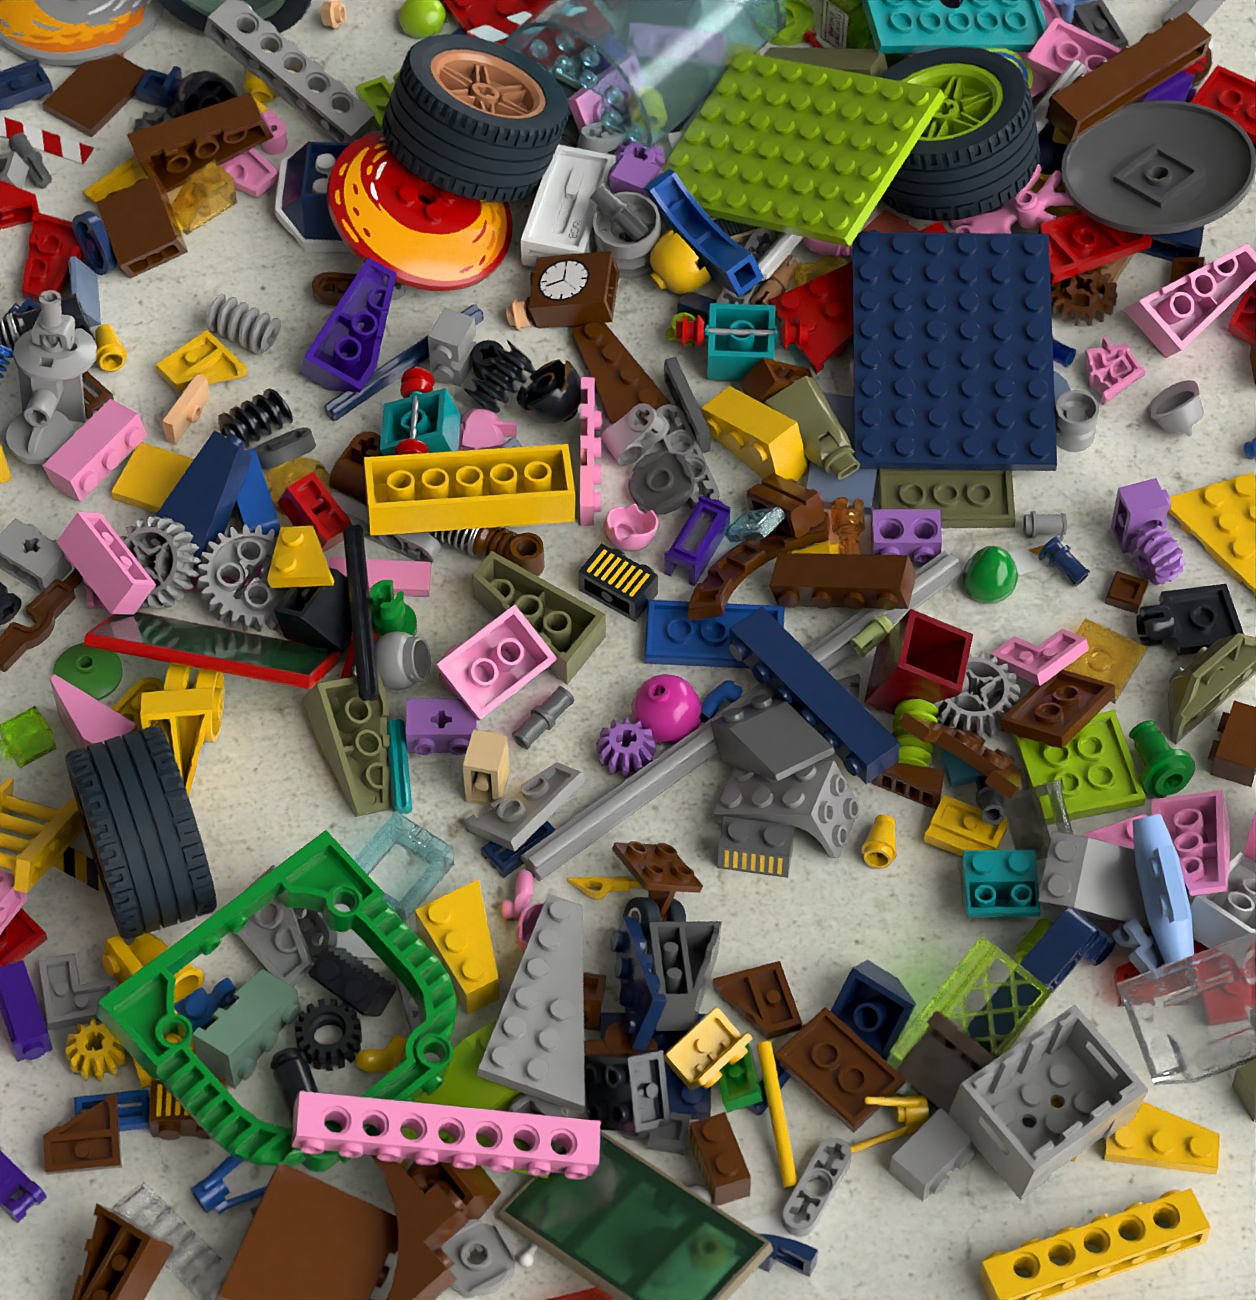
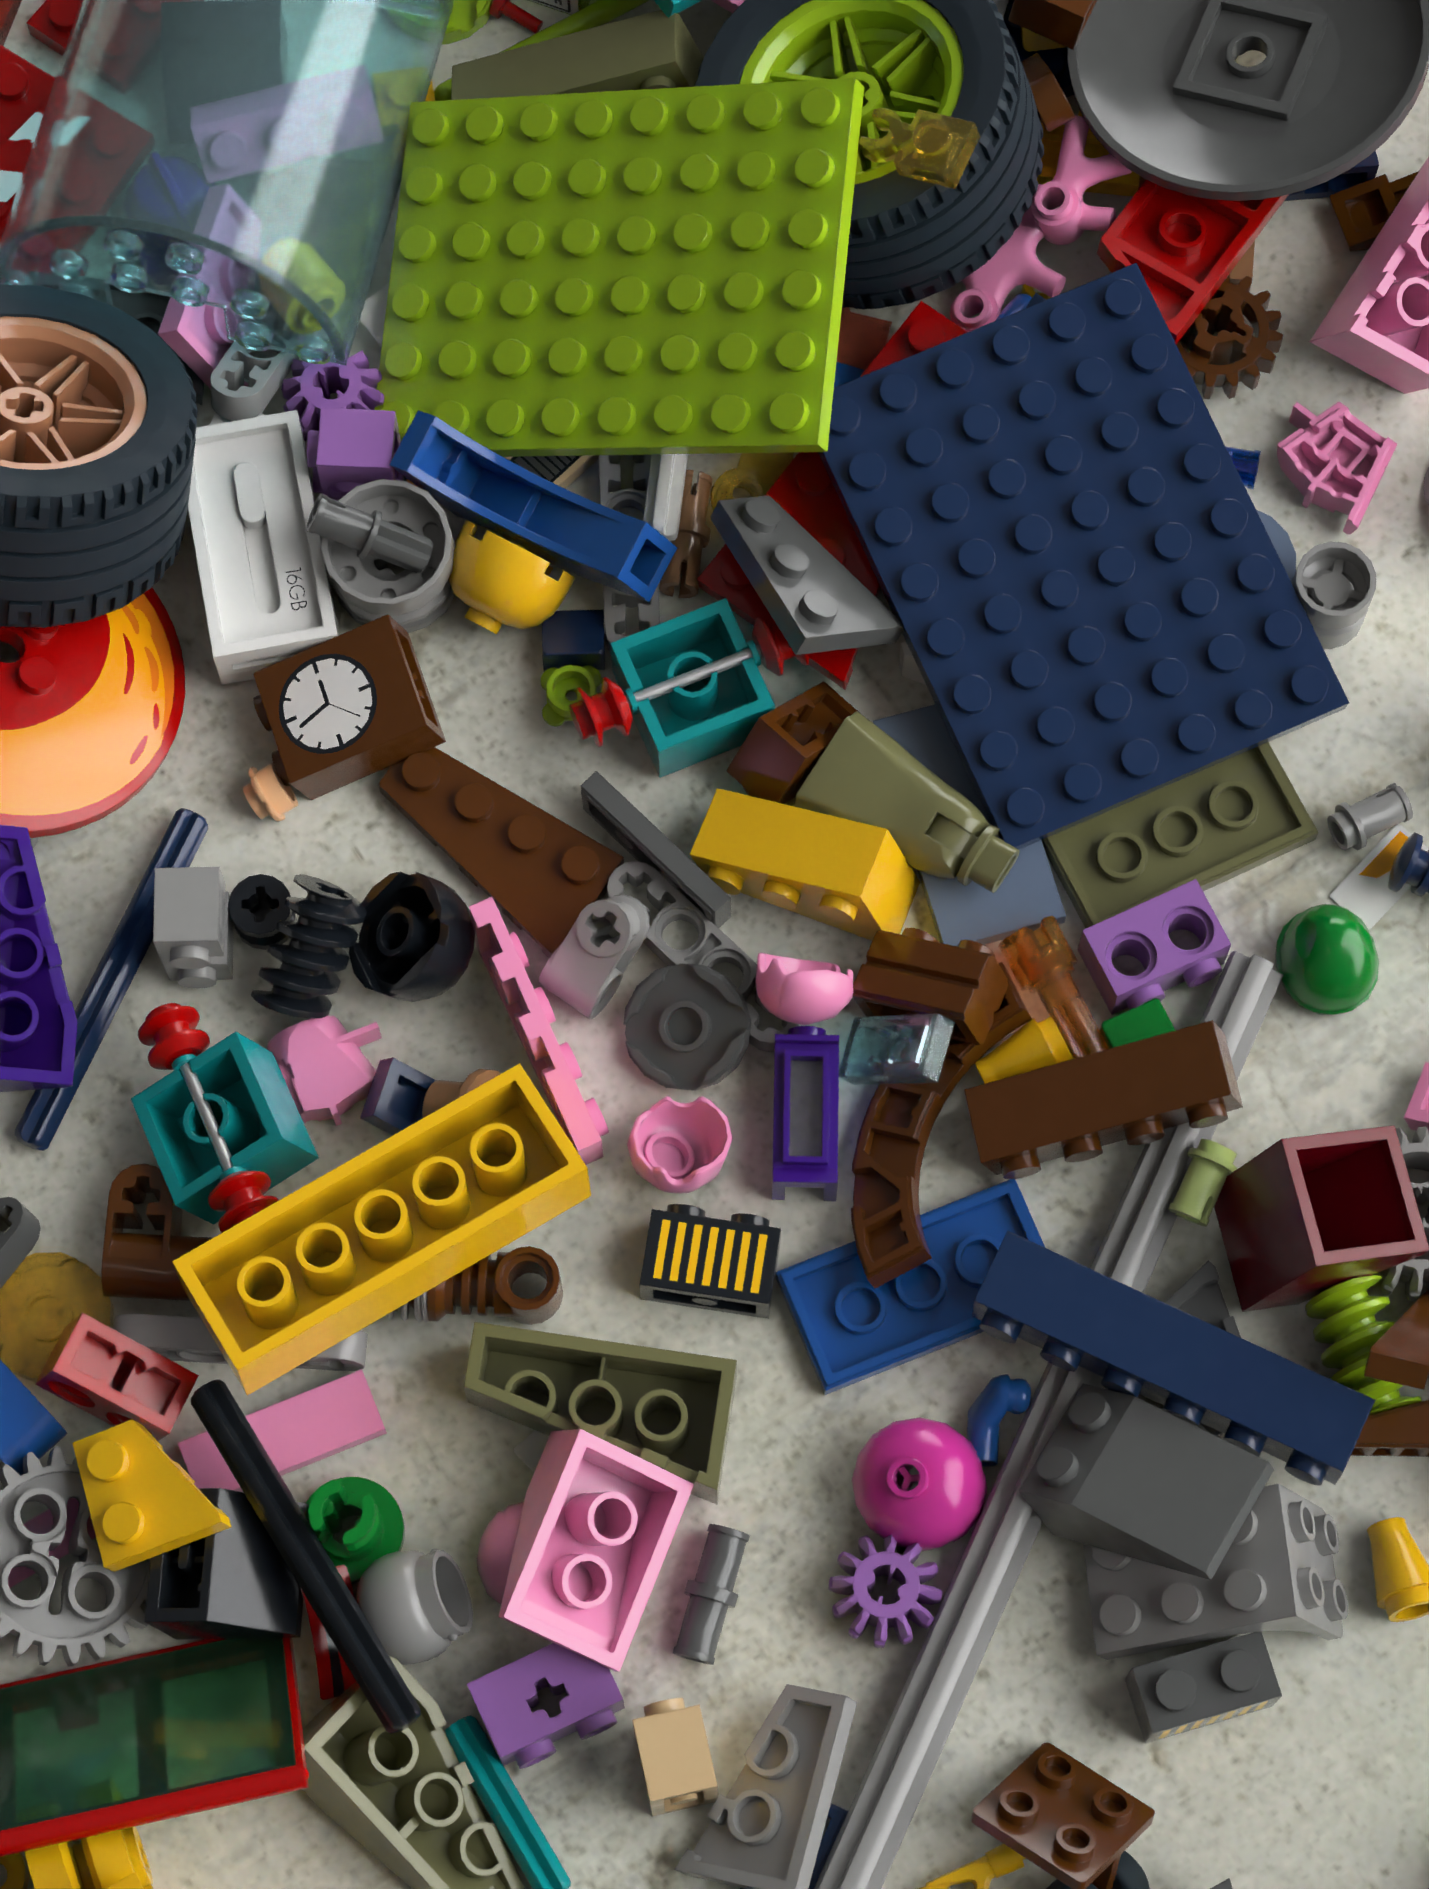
camera: 25 degrees left, 15 degrees up
(723, 480) = (802, 989): none -> bright pink hair
(814, 311) = (800, 582): none -> dark grey wing
(960, 133) = (927, 150): none -> clear yellow plate
(1048, 156) = (1047, 93): none -> reddish brown beam

